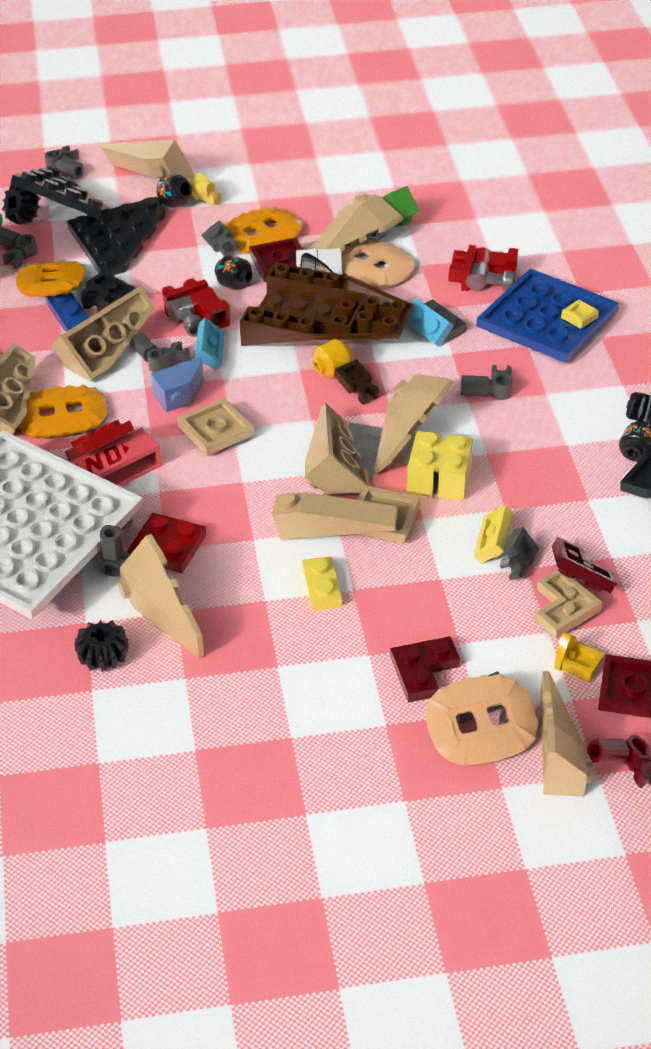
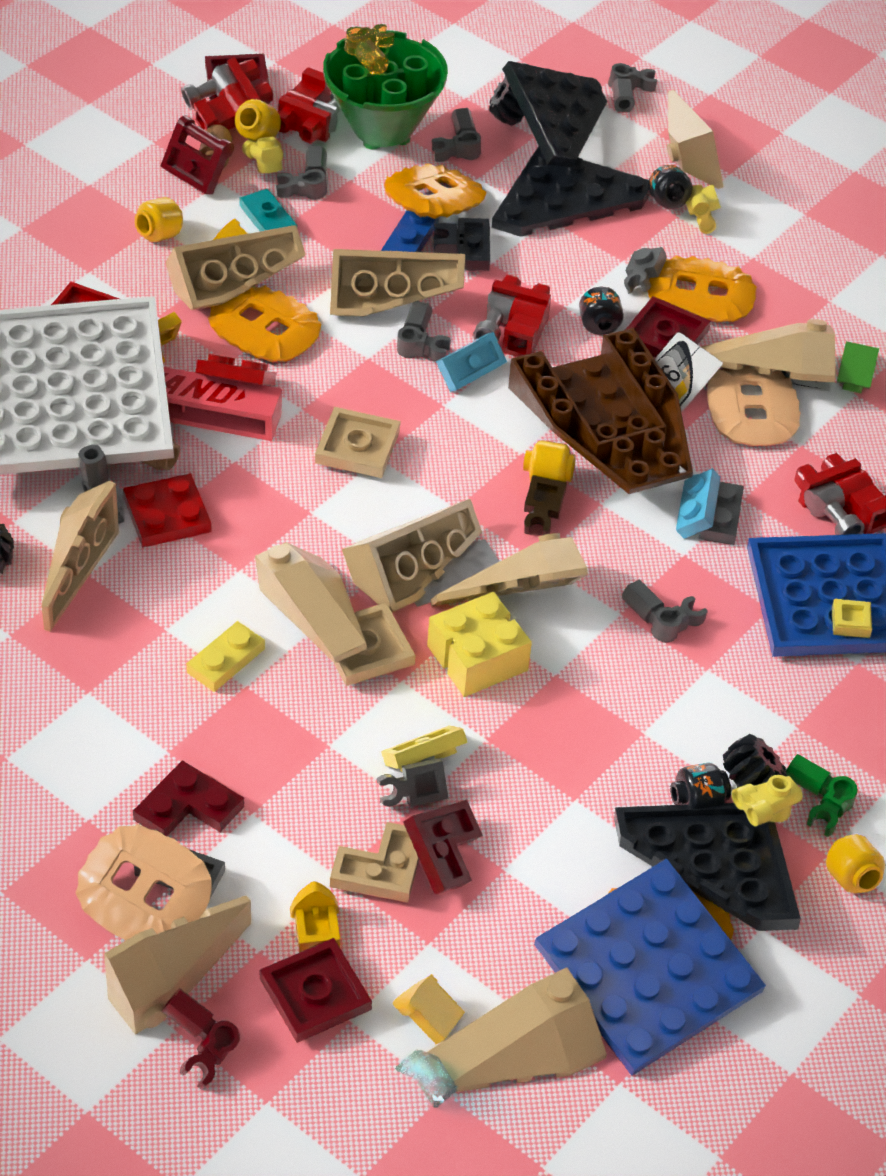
camera: 45 degrees right, 5 degrees up
(178, 384) = (387, 377): medium blue slope -> none

